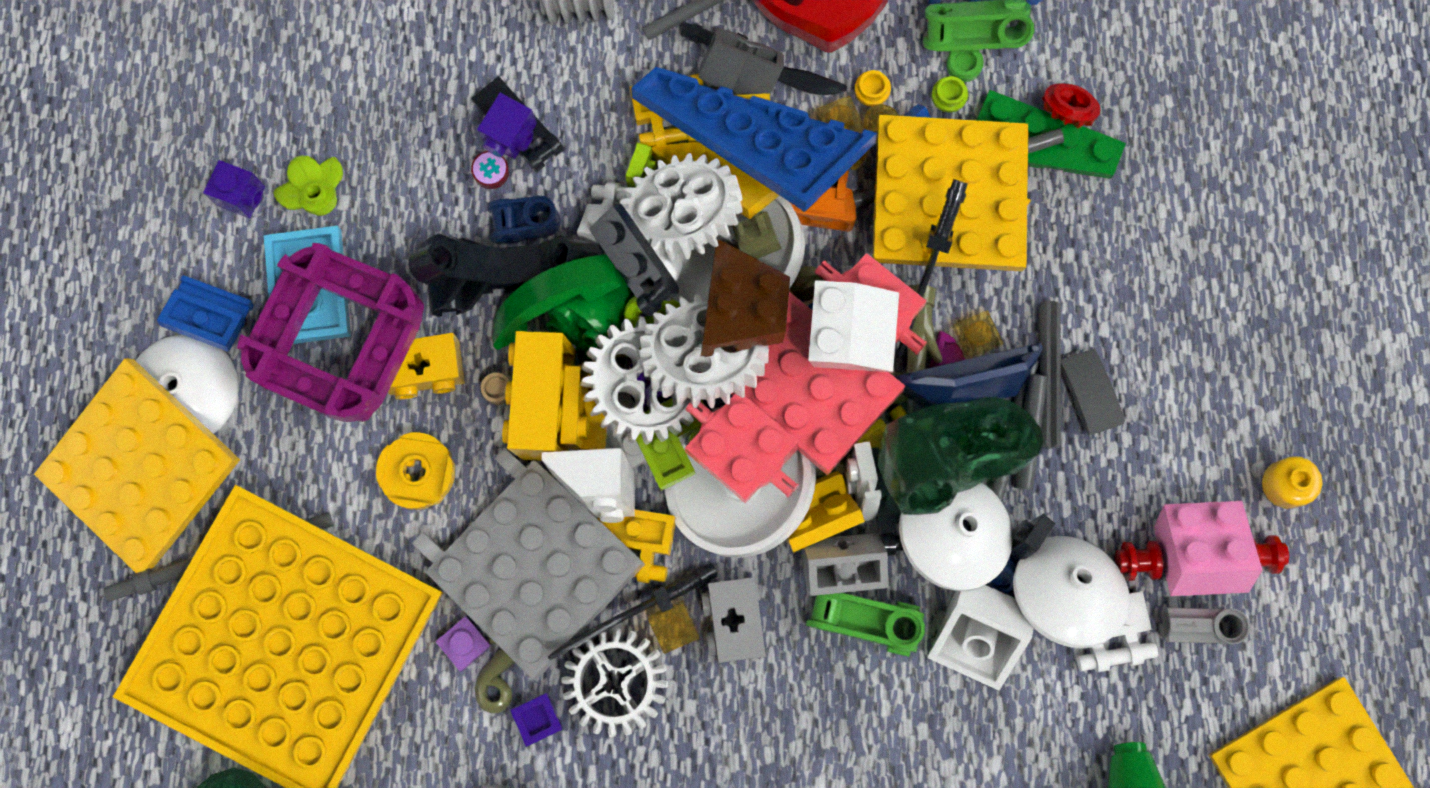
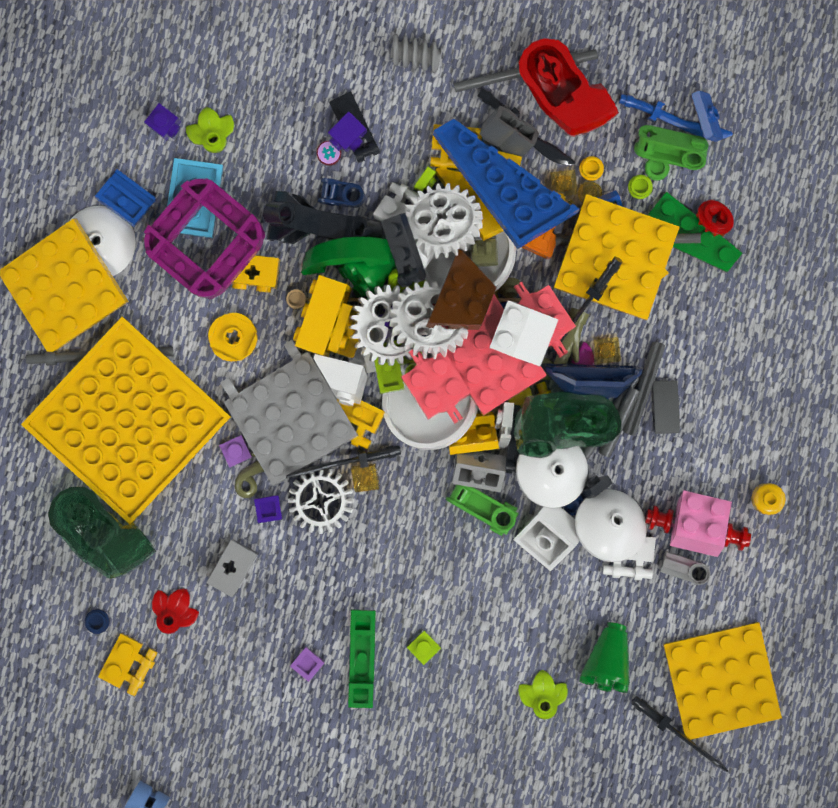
camera: 20 degrees right, 10 degrees up
(742, 597) = (408, 498): light grey brick -> none

